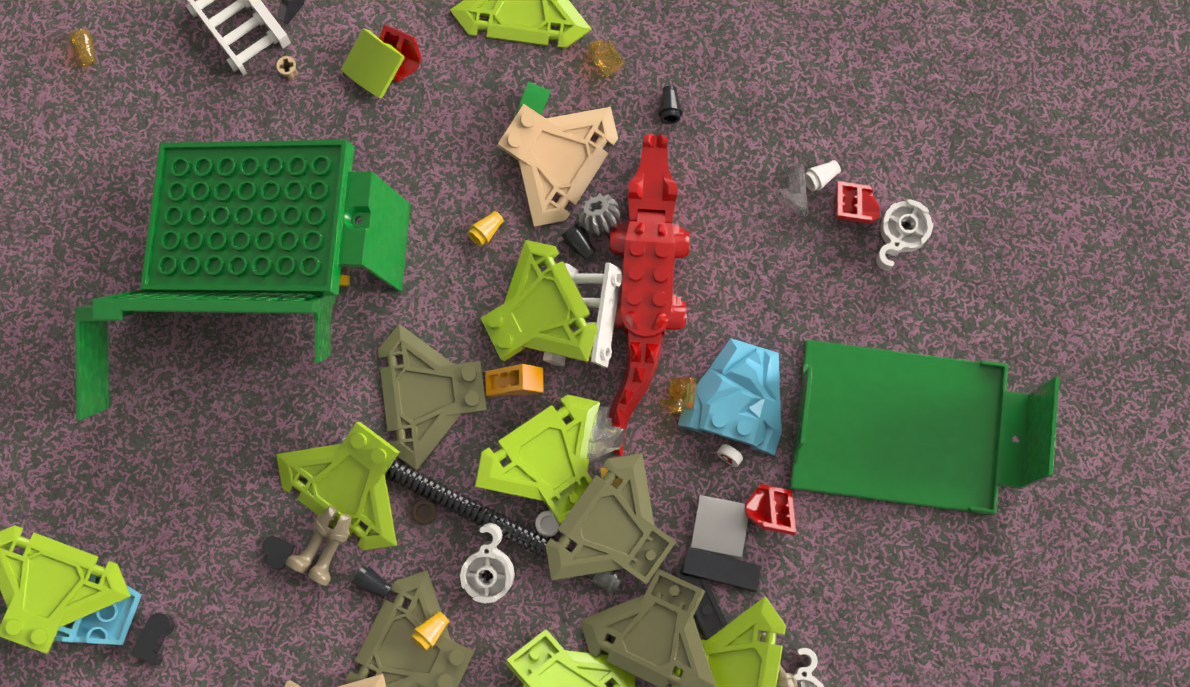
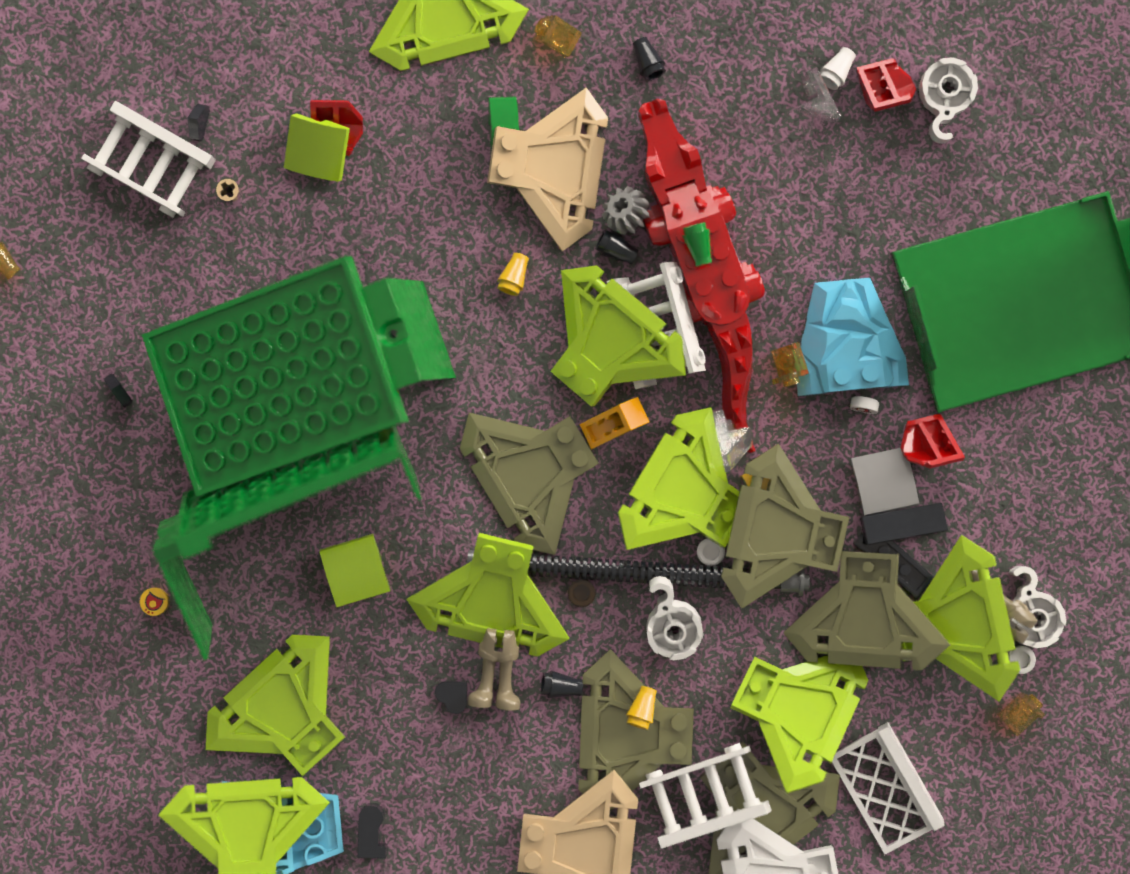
camera: 20 degrees left, 10 degrees up
(67, 367) = (154, 601): none -> yellow tile
(125, 186) = (118, 390): none -> black tile
(130, 500) = (280, 707): none -> lime plate
(244, 411) = (354, 570): none -> lime slope
(644, 257) = (698, 242): none -> green cone

